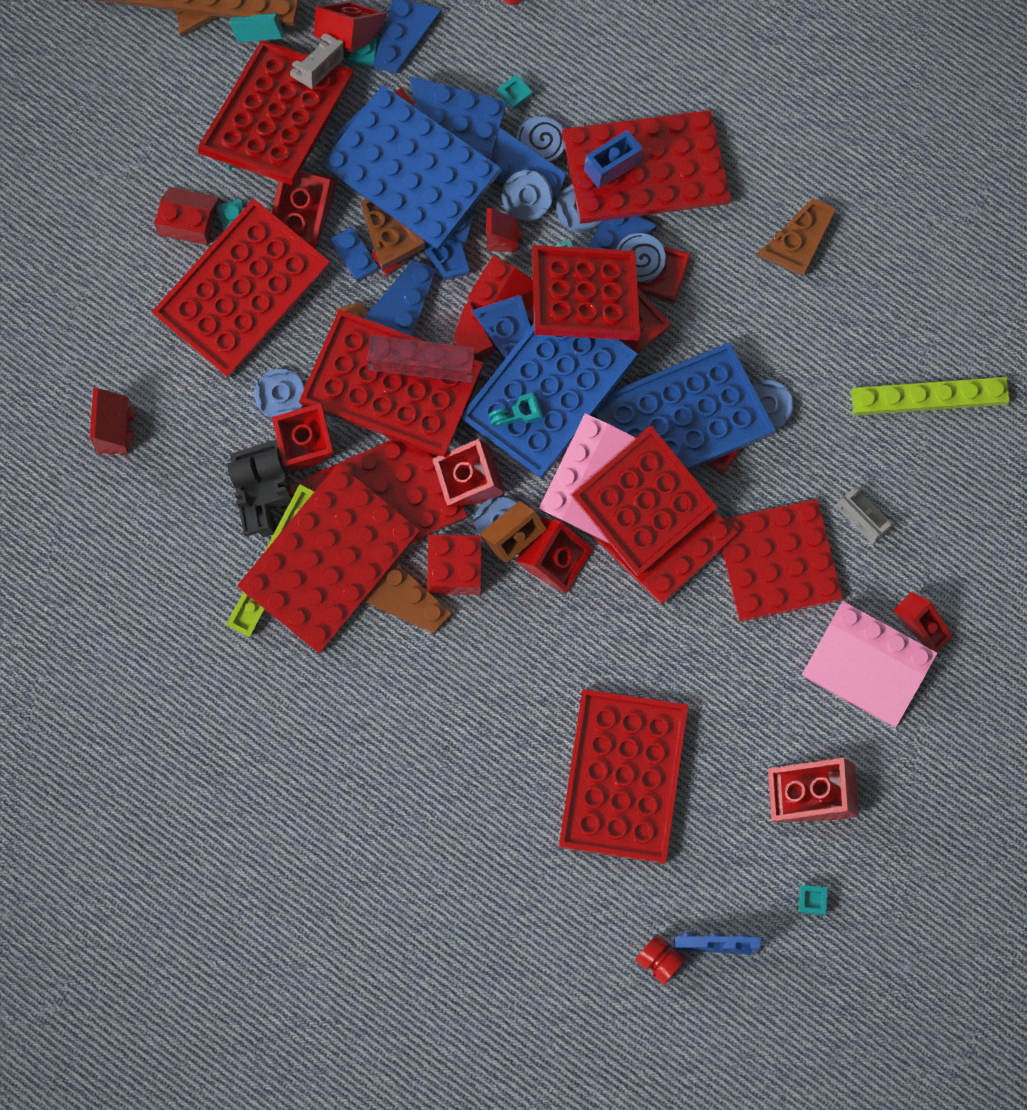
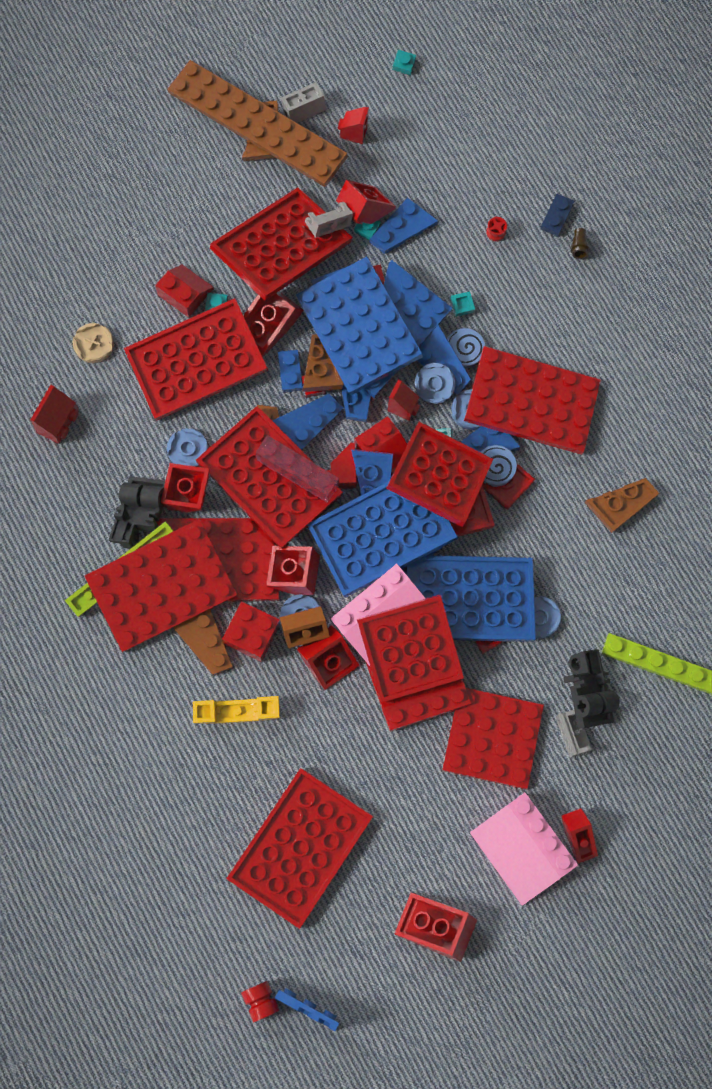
camera: 20 degrees right, 0 degrees up
(111, 322) = (93, 343): none -> tan tile
(257, 27) = (298, 177): teal tile -> none
(480, 659) = (236, 710): none -> yellow slope
(500, 417) = (334, 538): teal piece -> none
(613, 159) = (508, 384): blue brick -> none
(812, 900) = (396, 1009): teal plate -> none
(865, 466) = (590, 695): none -> black plate

